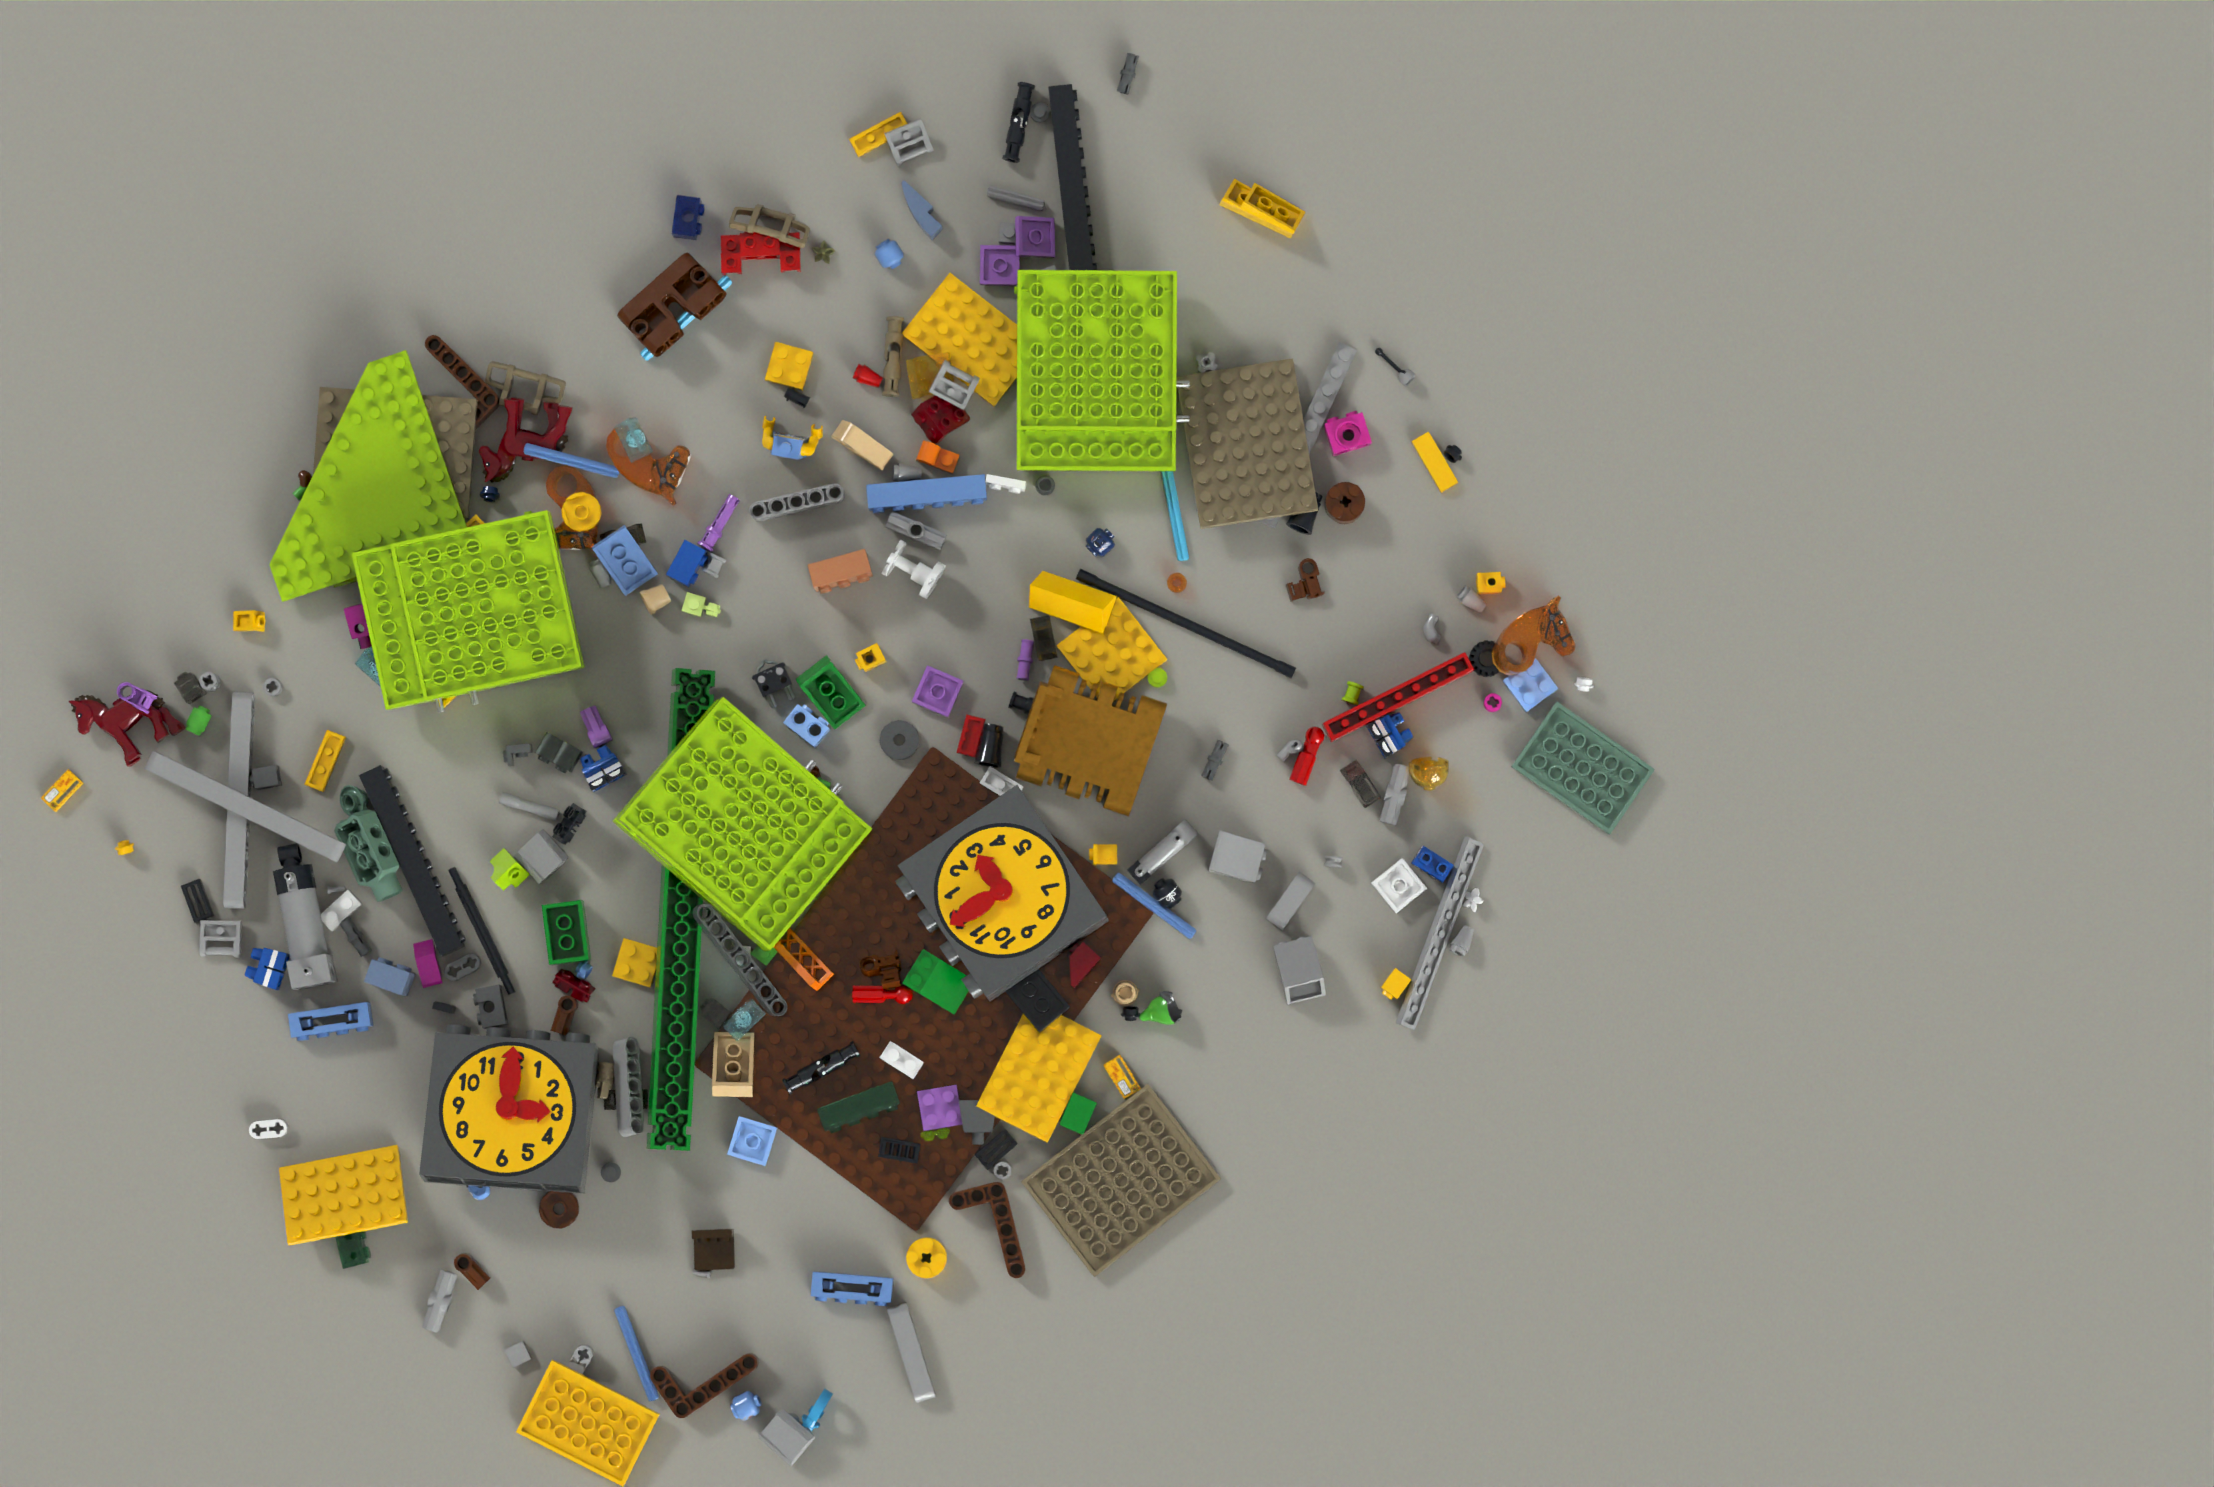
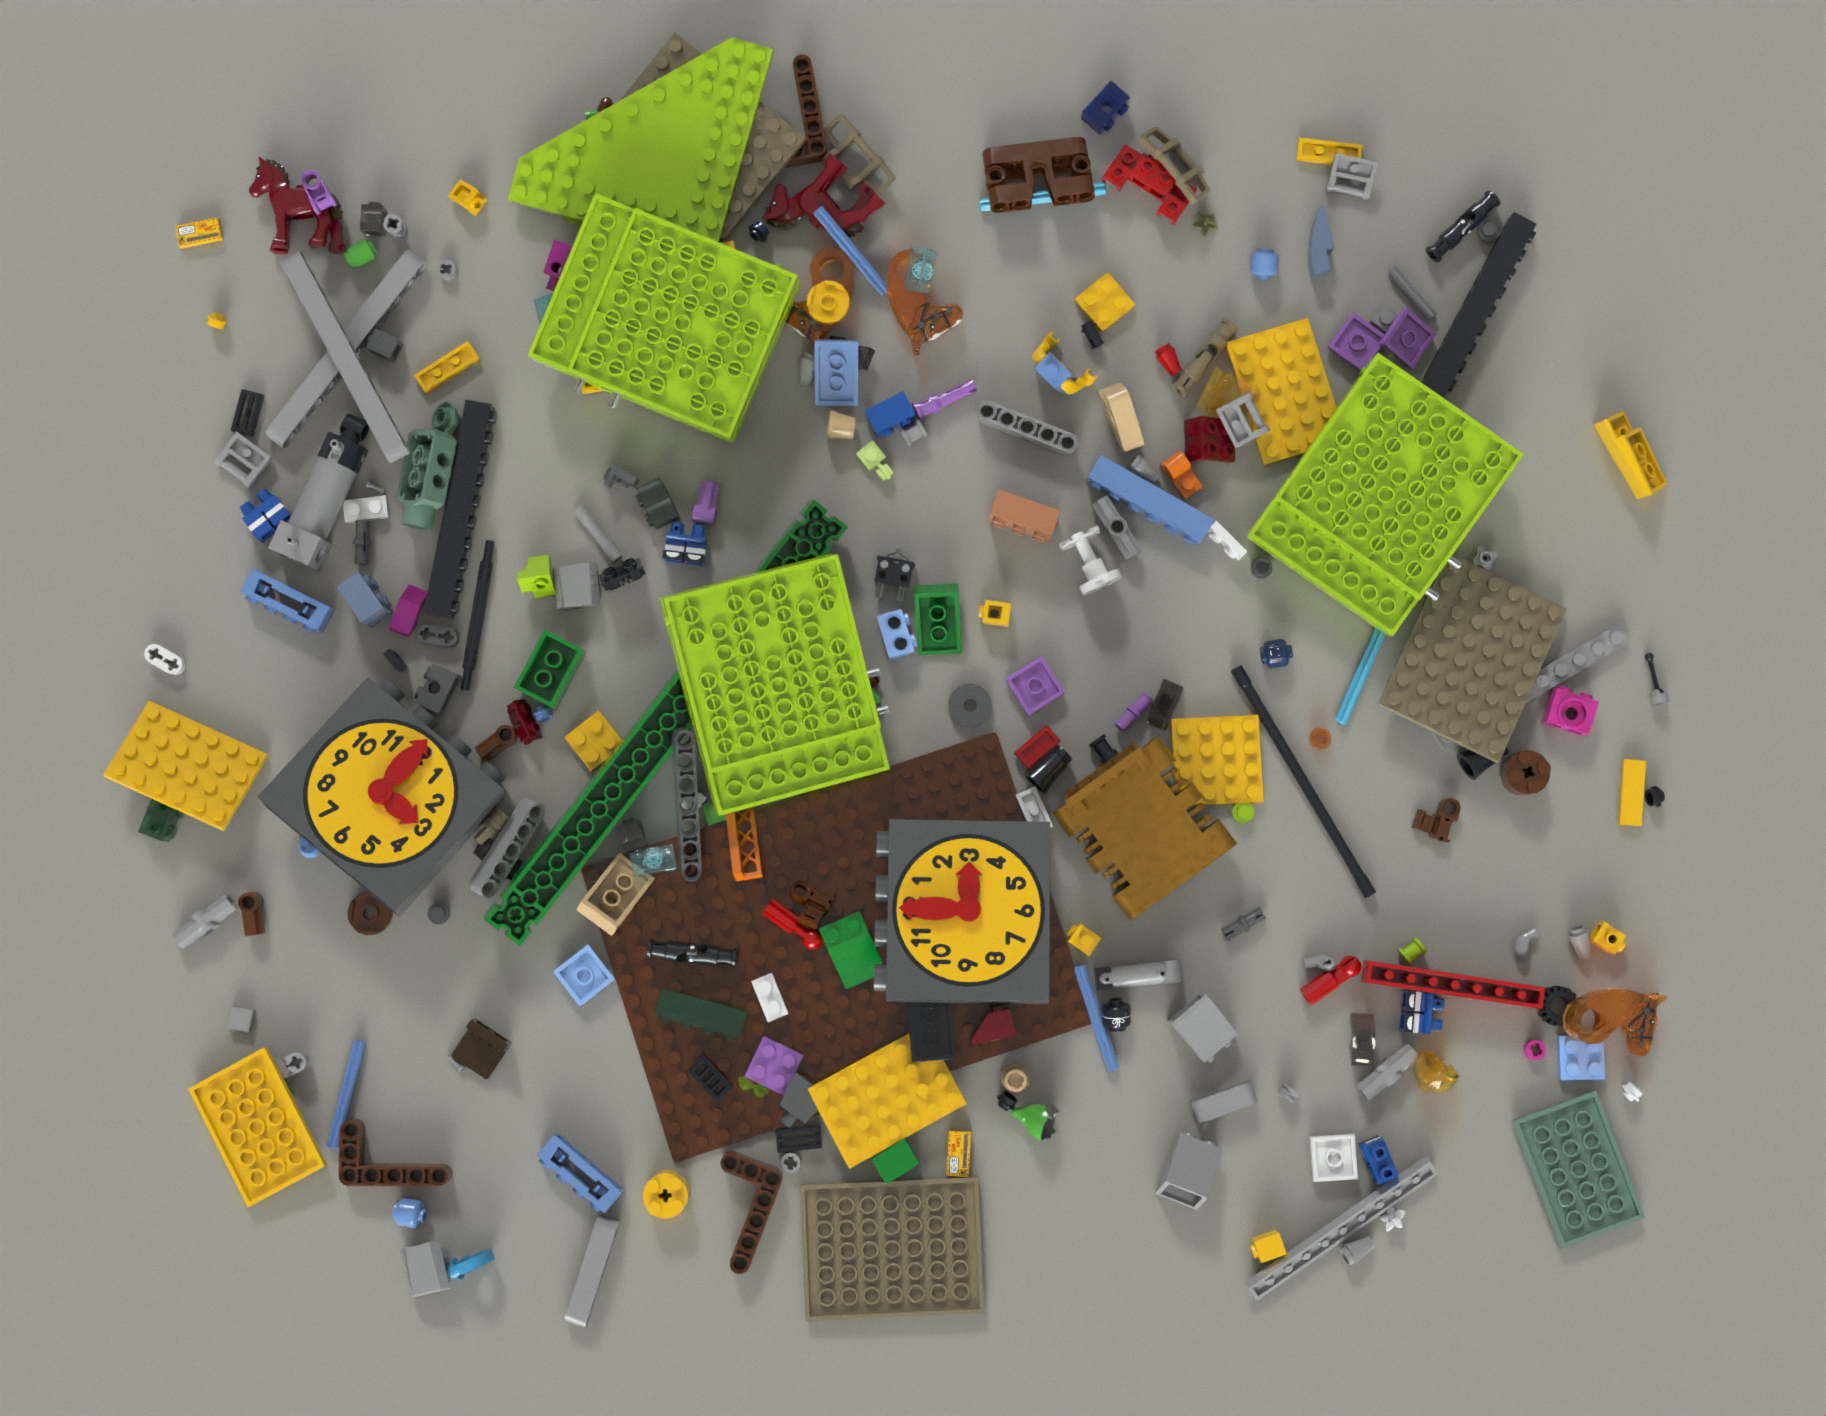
camera: 35 degrees right, 0 degrees up
(1071, 601) = (1212, 689): yellow slope -> none
(1127, 73) = (1592, 250): dark grey pin -> none

